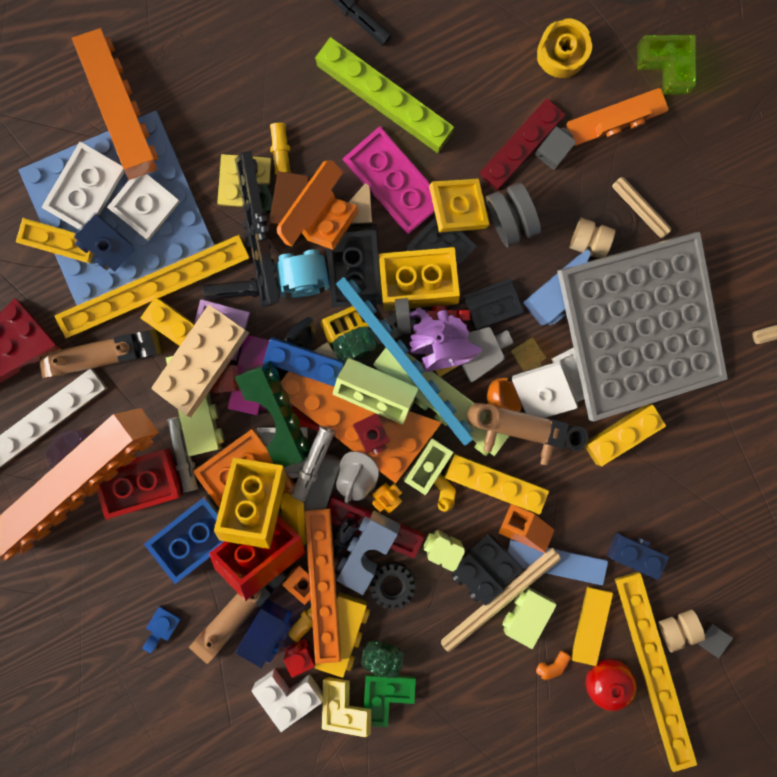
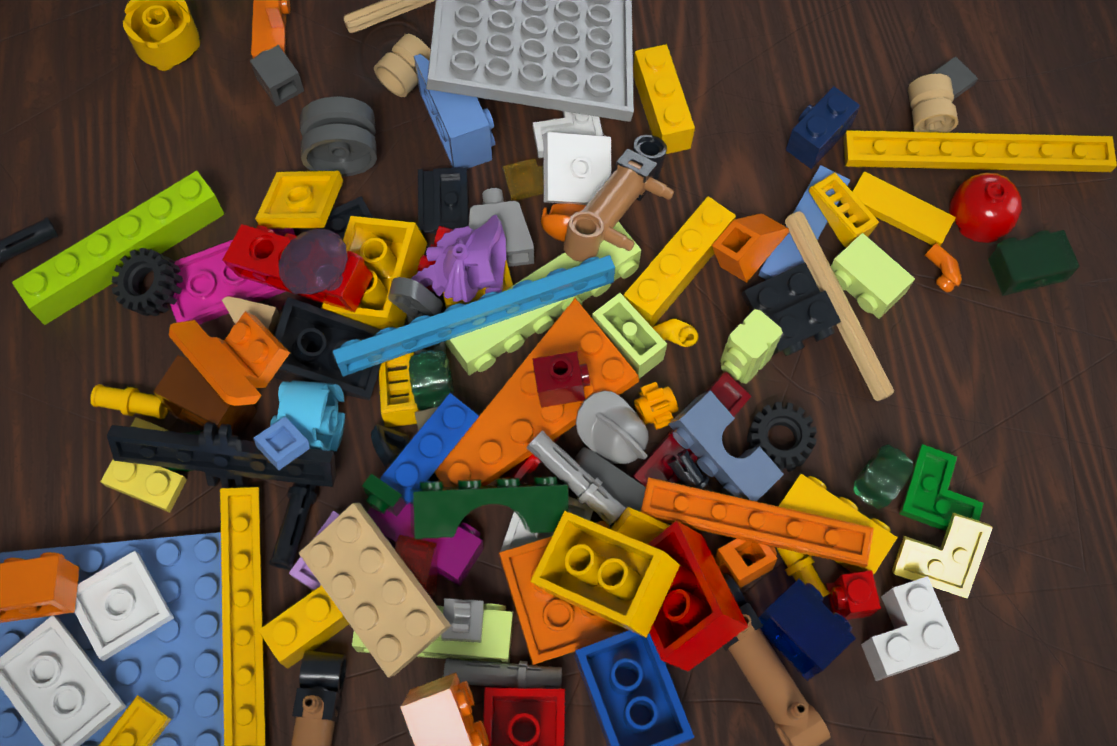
camera: 75 degrees left, 20 degrees down
(103, 242) = (146, 677): dark blue brick -> none
(202, 421) = (465, 620): none -> light grey tile
(259, 344) = (382, 496): none -> dark green plate
(269, 269) = (281, 443): none -> medium blue plate
(358, 114) = (132, 275): none -> black tyre
(375, 391) = (503, 362): yellowish green brick -> none
(399, 241) = (313, 262): none -> clear purple dish
(402, 189) = (257, 254): none -> red brick
(521, 144) = (256, 115): dark red plate -> none
(562, 587) = (841, 225): none -> yellow slope
(576, 727) = (1033, 262): none -> clear green brick

